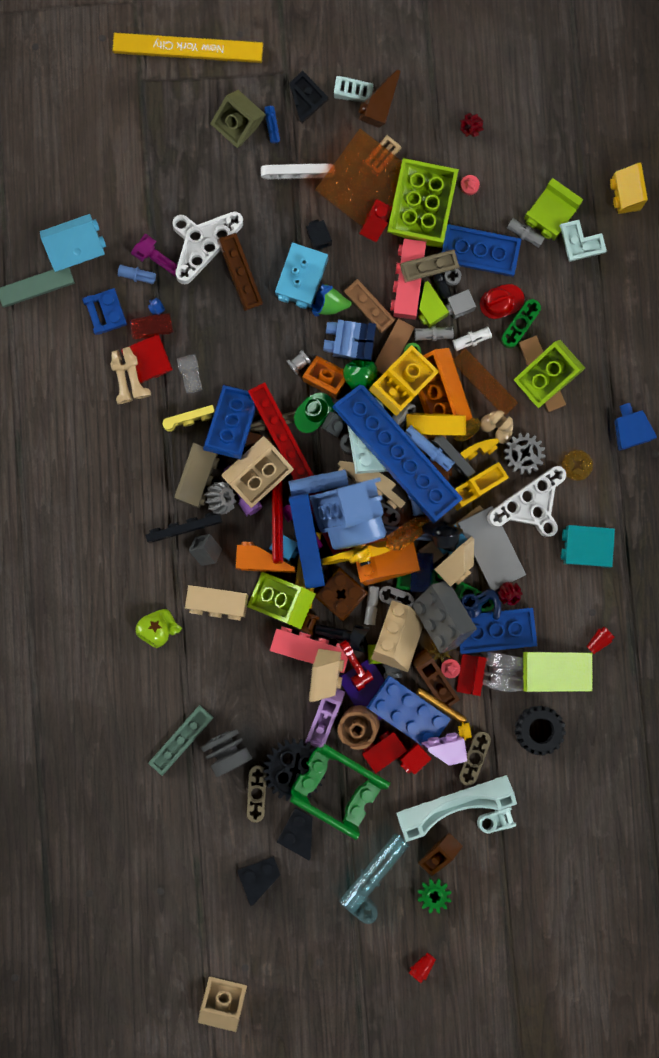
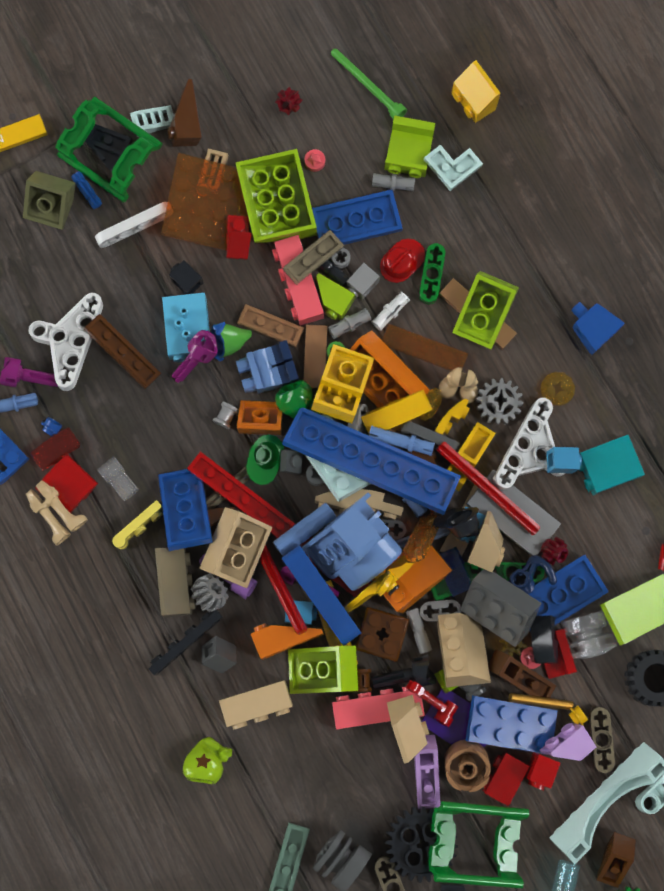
camera: 30 degrees left, 5 degrees down
(301, 301) = (199, 351): none -> magenta piece
(321, 114) = (133, 155): none -> green piece
(465, 659) = (543, 642): none -> black slope
(480, 519) = (488, 488): none -> red axle
(552, 524) = (563, 460): none -> dark azure brick
(556, 172) = (394, 108): none -> bright green piece

